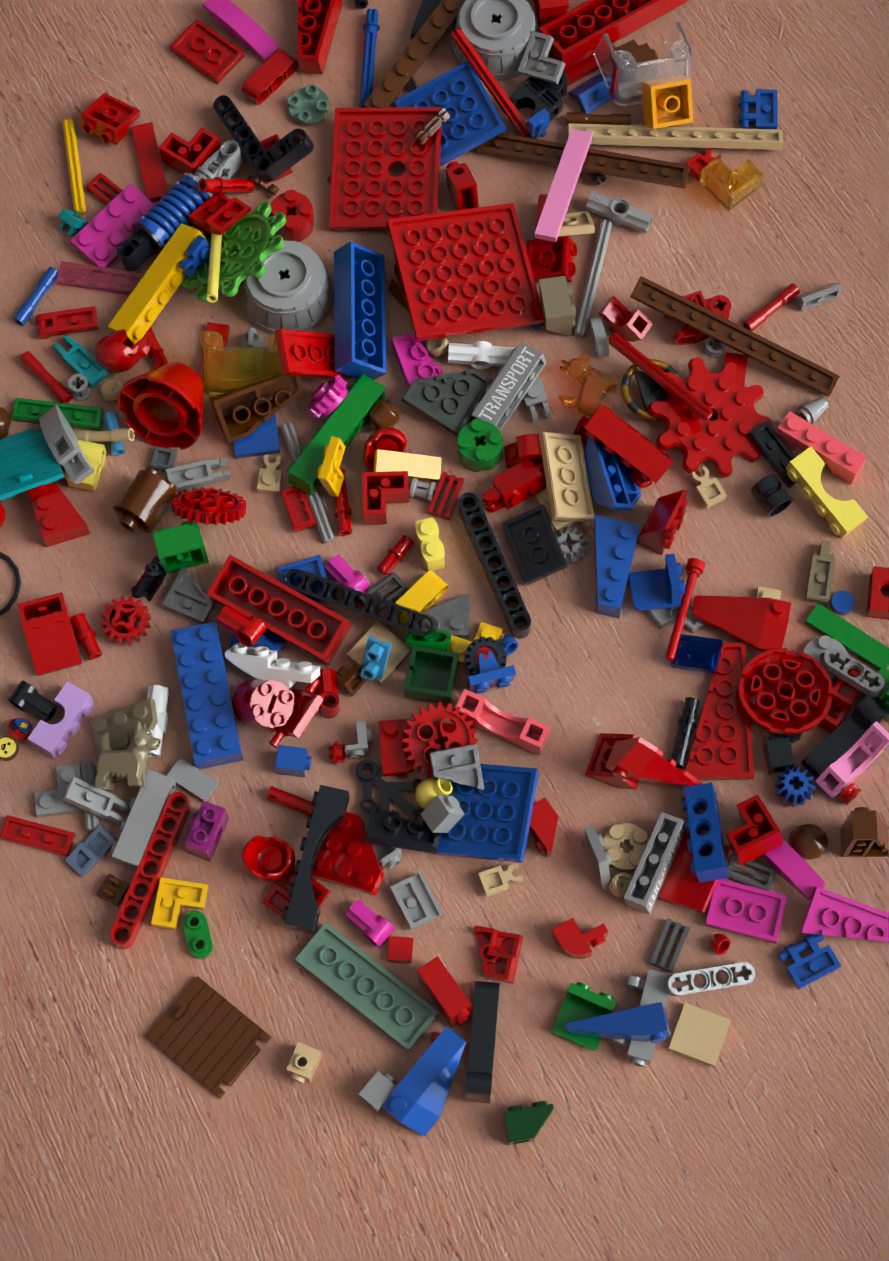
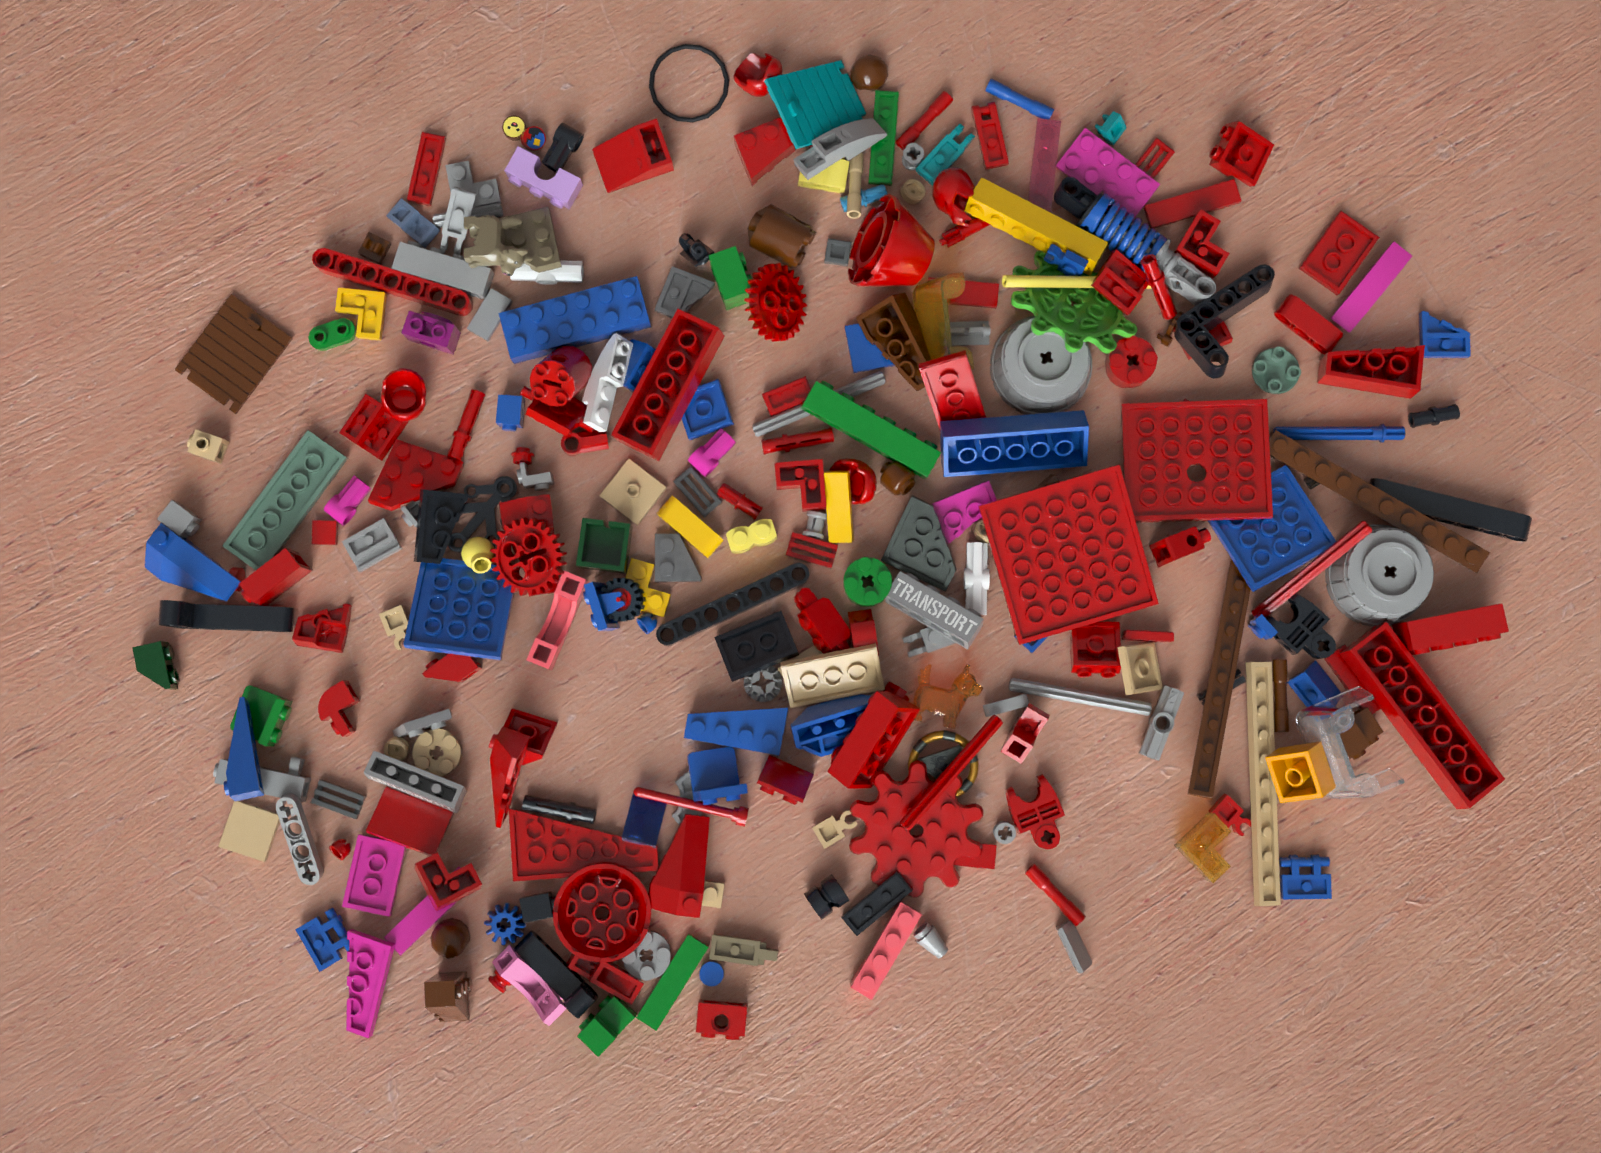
camera: 85 degrees right, 15 degrees up
(74, 166) = (1181, 122): yellow axle -> none
(86, 636) = (635, 194): red pin -> none
(115, 626) = (646, 237): red gear -> none
(198, 474) = (820, 286): light grey hinge -> none
(246, 629) = (640, 351): red piece -> none
(270, 478) = (820, 365): tan plate -> none
(327, 397) = (910, 416): dark pink gear -> none
(328, 812) = (354, 434): black arch -> none
(329, 470) = (815, 425): yellow plate -> none
(350, 602) = (677, 479): black beam -> none
(351, 679) = (600, 464): reddish brown tile -> none
(375, 659) = (616, 486): dark azure hips -> none
(432, 126) = (1246, 507): reddish brown axle -> none
(439, 640) = (645, 541): green plate -> none
(442, 814) = (452, 564): light grey brick -> none
(458, 765) = (499, 576): flat silver wing -> none
(536, 61) = (1341, 620): light grey plate -> none
(557, 305) = (1034, 655): dark tan slope -> none
(563, 185) = (1181, 658): bright pink tile -> none
(714, 865) = (409, 844): blue brick -> none
(734, 336) = (1008, 853): reddish brown plate -> none
(745, 881) = (399, 895): dark grey tile -> none
(842, 515) = (854, 935): light yellow arch -> none
(850, 663) = (614, 985): light grey beam -> none

